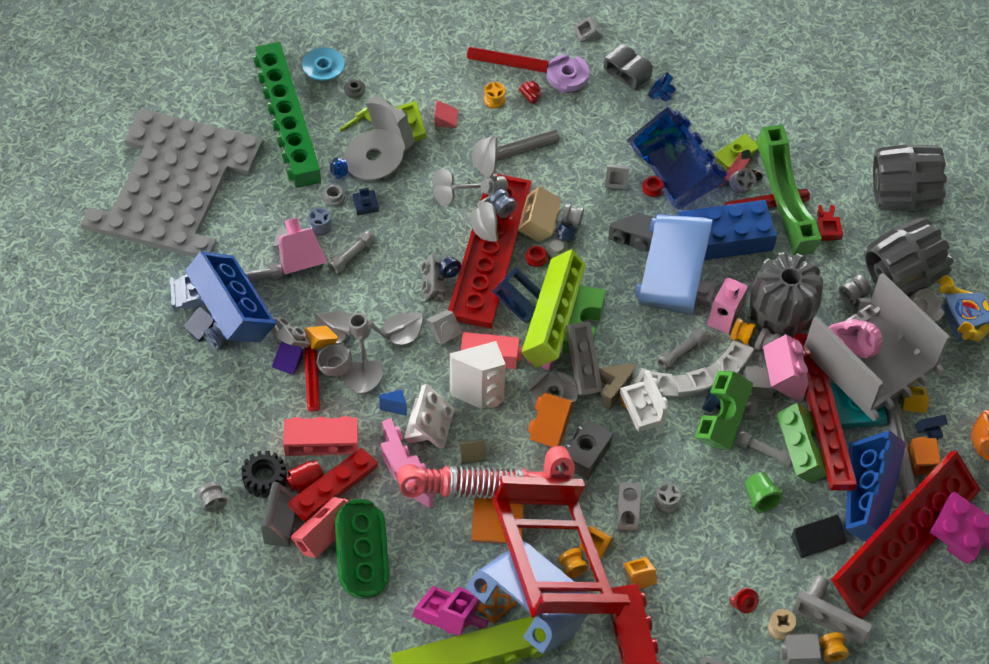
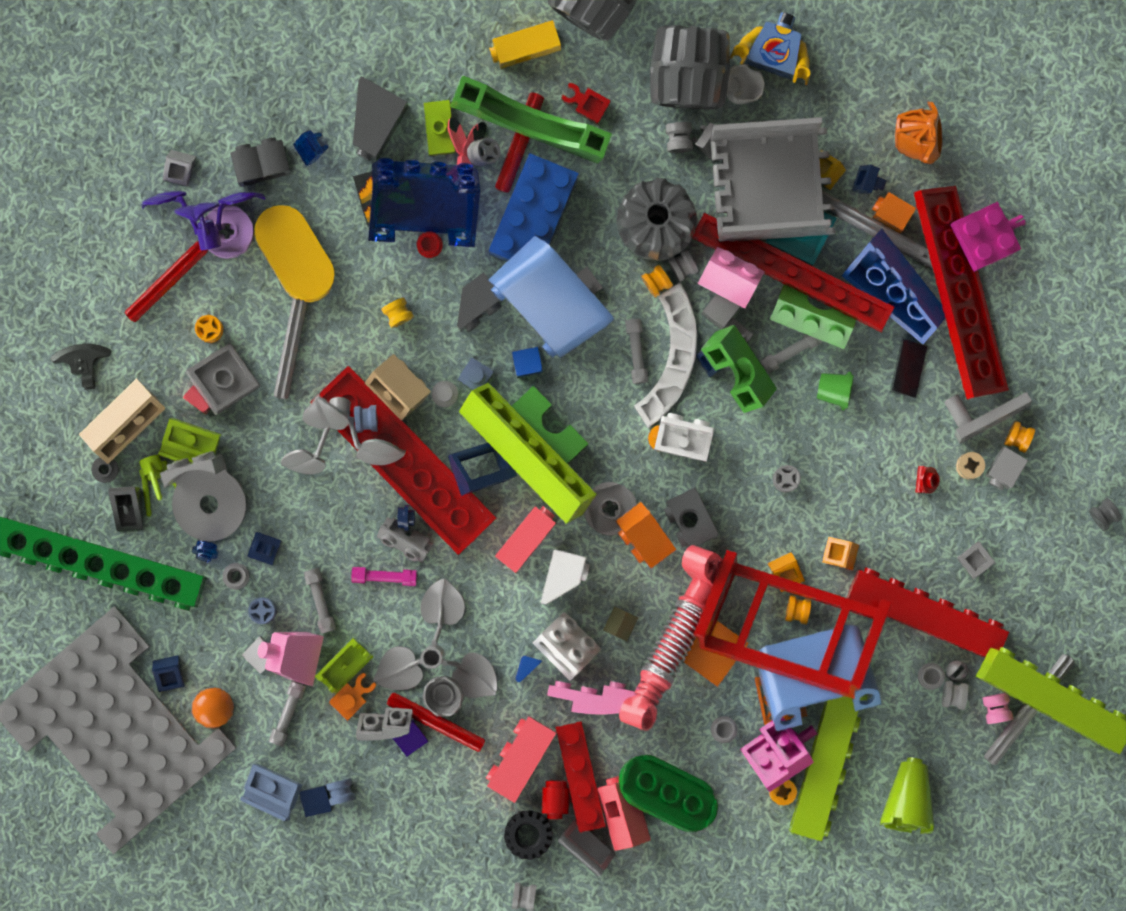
camera: 55 degrees left, 30 degrees up
(228, 229) = (212, 707): none -> orange hair
(230, 297) = (316, 761): blue brick -> none
(234, 193) = (168, 673): none -> dark blue slope
(293, 307) = (350, 699): none -> orange plate
(313, 288) = (344, 666): none -> lime hinge
(320, 336) = (408, 693): light orange slope -> none
(323, 64) = (40, 477): medium azure dish -> none
(338, 109) = (127, 508): none -> dark grey slope
(394, 76) = (122, 421): none -> tan brick
(406, 294) = (361, 575): none -> dark pink bar
(417, 640) = (781, 792): none -> light orange wheel
(418, 43) = (81, 360): none -> pearl dark grey piece
(440, 566) = (724, 729): none -> light grey plate
(444, 326) = (474, 569): light grey brick -> none
(466, 118) = (222, 379): none -> light grey tile
(531, 91) = (226, 285): red plate -> none
(536, 256) = (440, 420): red plate -> none
(565, 233) = (433, 373): dark blue plate -> none
(566, 23) = (206, 229): none -> dark purple plant
(572, 216) = (417, 353): light grey wheel -> none
(583, 114) = (294, 253): none -> yellow tile
(583, 358) = (598, 460): light grey plate -> none
(589, 259) = (475, 374): none -> sand blue plate
(591, 190) = (397, 312): none -> yellow wheel
(615, 378) = (636, 437): dark tan slope -> none
(617, 176) = (396, 274): light grey tile -> none
(618, 287) = (527, 362): none -> blue slope
(628, 506) = (773, 521): light grey leg -> none
(713, 111) = (375, 118): none -> dark grey slope
(732, 298) = (622, 276): bright pink torso -> none
(835, 167) = (525, 44): none -> yellow brick
(859, 336) = (748, 186): bright pink hair -> none

